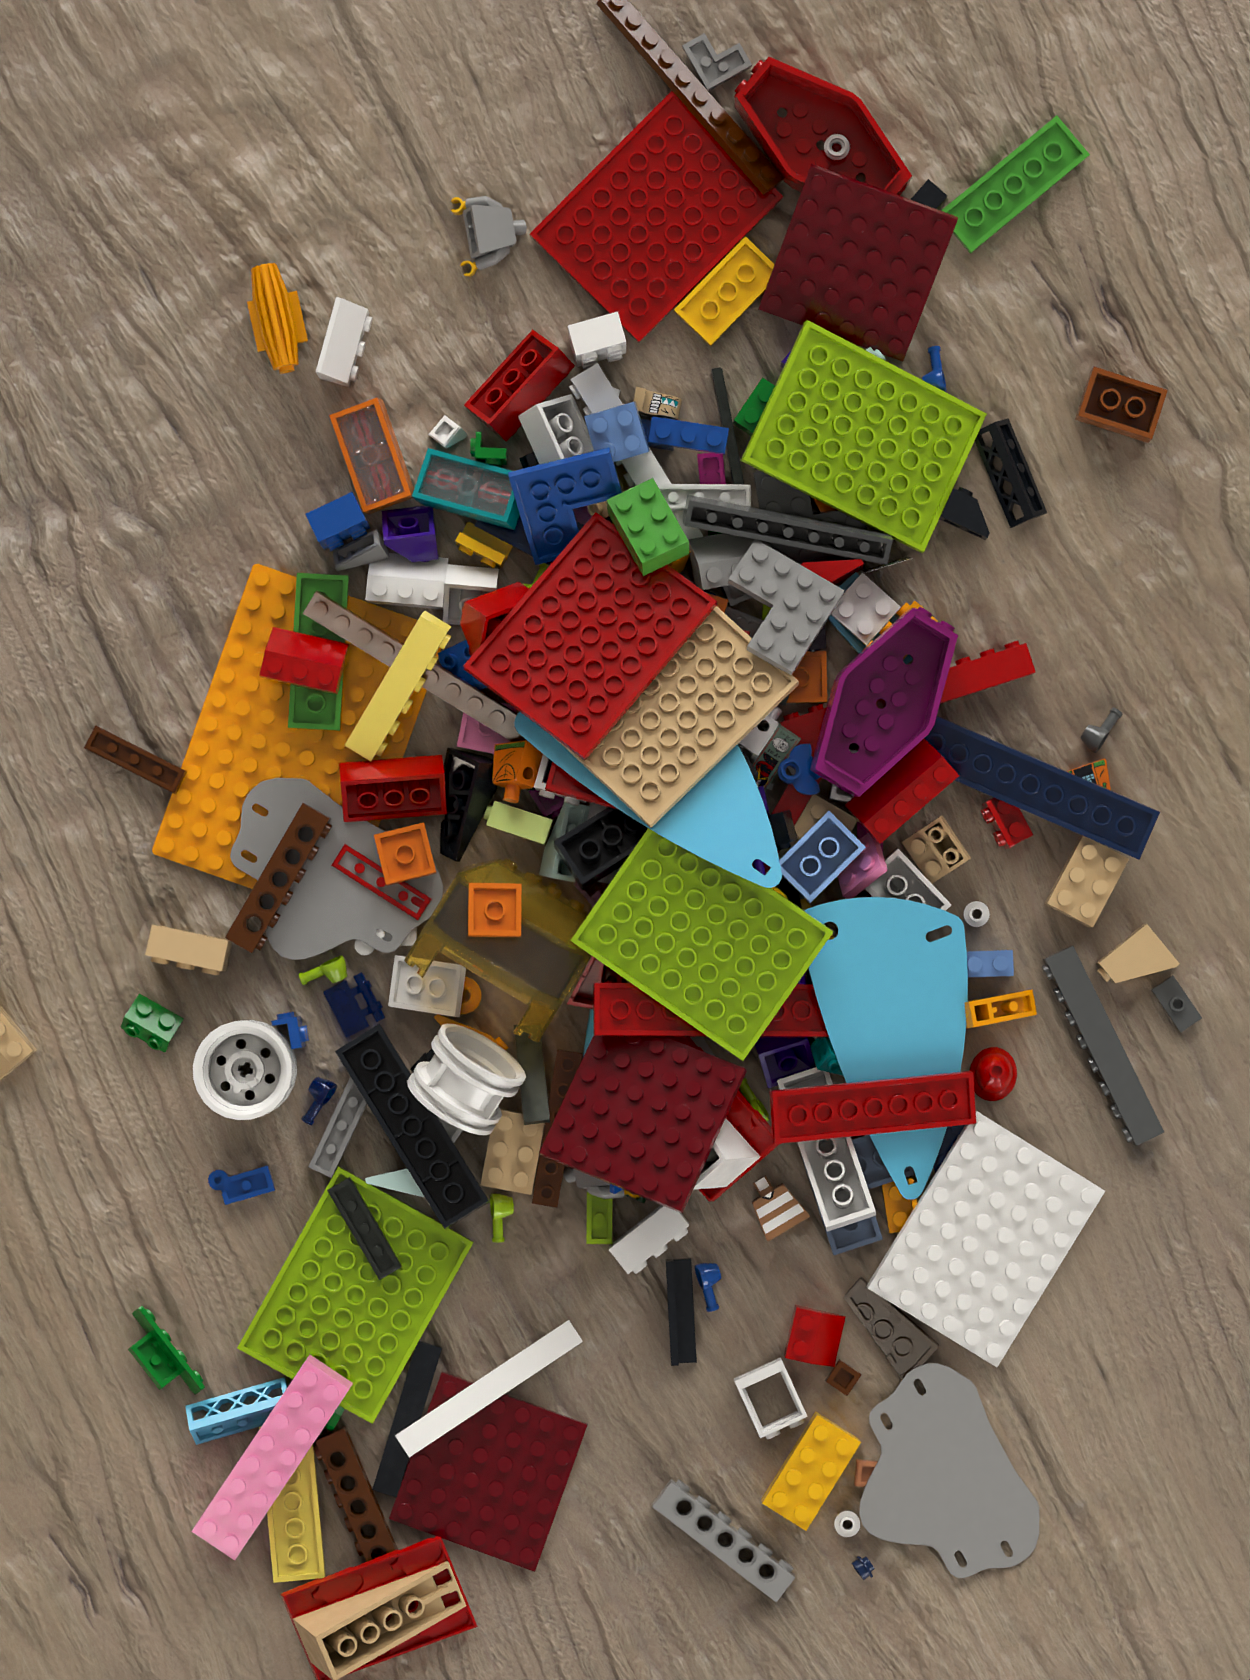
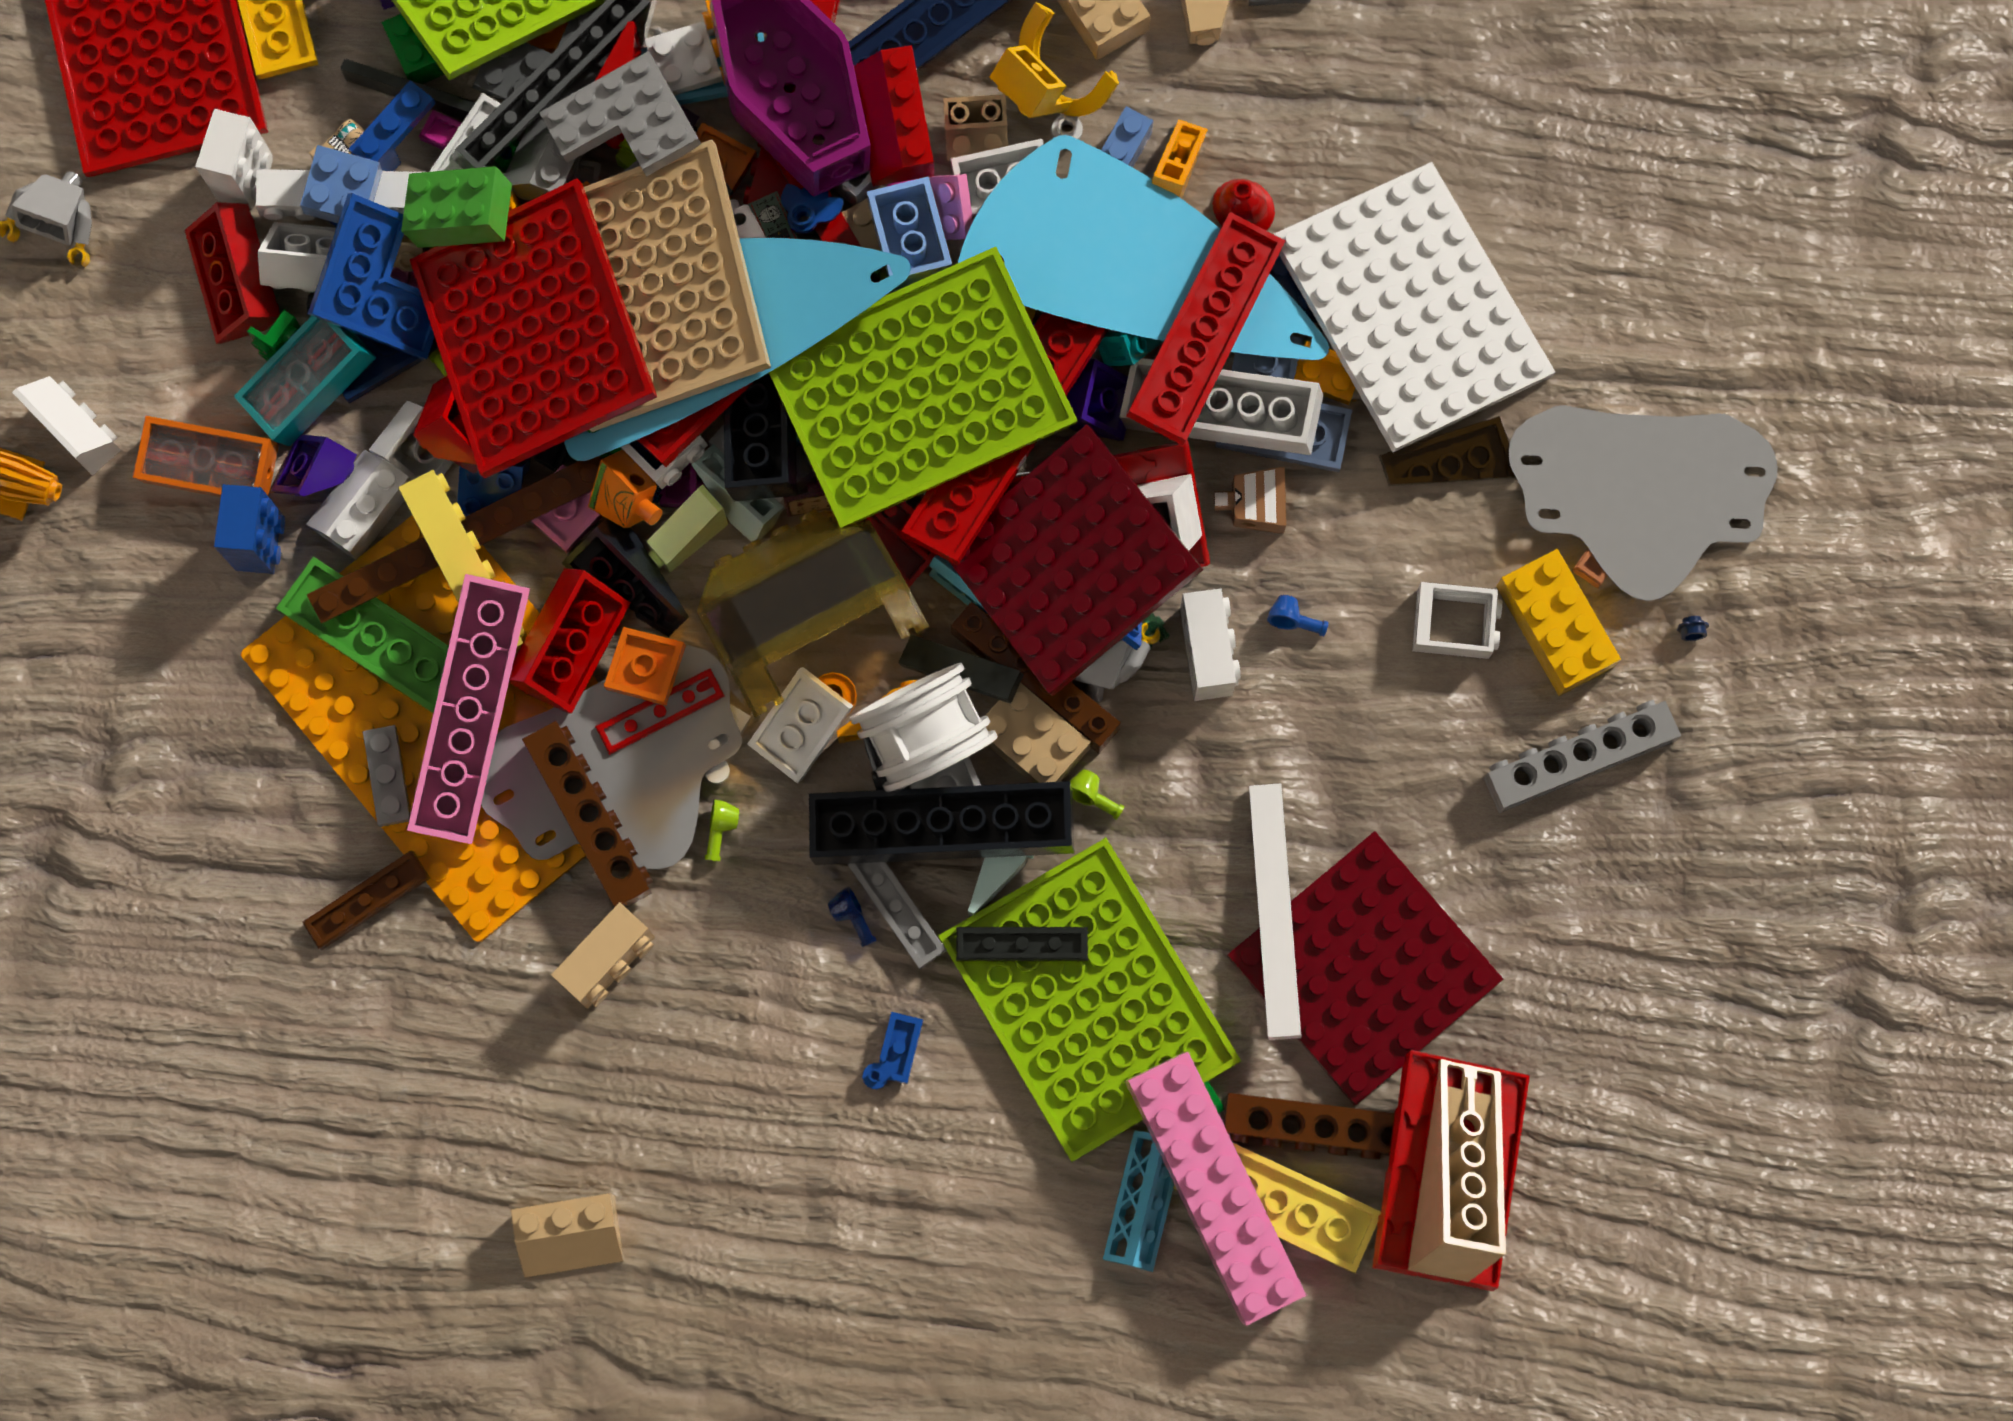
camera: 60 degrees left, 10 degrees down
(151, 1023) = (661, 1050): green bracket -> none
(160, 1357) = (1031, 1252): green bracket -> none
(210, 1075) = (743, 935): white wheel -> none
(227, 721) = (387, 775): none -> light grey plate
(297, 1033) = (764, 891): blue bracket -> none
(300, 755) = (468, 709): none -> bright pink brick
(304, 660) = (374, 651): red slope -> none
(346, 1007) = (774, 830): clear blue plate -> none
(361, 551) = (298, 531): light grey slope -> none
(408, 1412) = (1250, 1016): black tile -> none
(447, 432) = (233, 374): white slope -> none
(489, 548) = (373, 404): yellow bracket -> none
(494, 909) = (758, 581): orange plate -> none
(599, 1220) = (1158, 691): lime plate -> none
(681, 1311) = (1307, 663): black fence -> none
(814, 1336) = (1413, 540): red slope -> none
(843, 1377) = (1476, 534): reddish brown plate -> none
(847, 1515) = (1632, 627): white plate -> none
(988, 871) = (1033, 85): none -> yellow piece
(1007, 822) = (984, 45): red bracket -> none
(1103, 1046) = (1279, 80): dark grey brick -> none

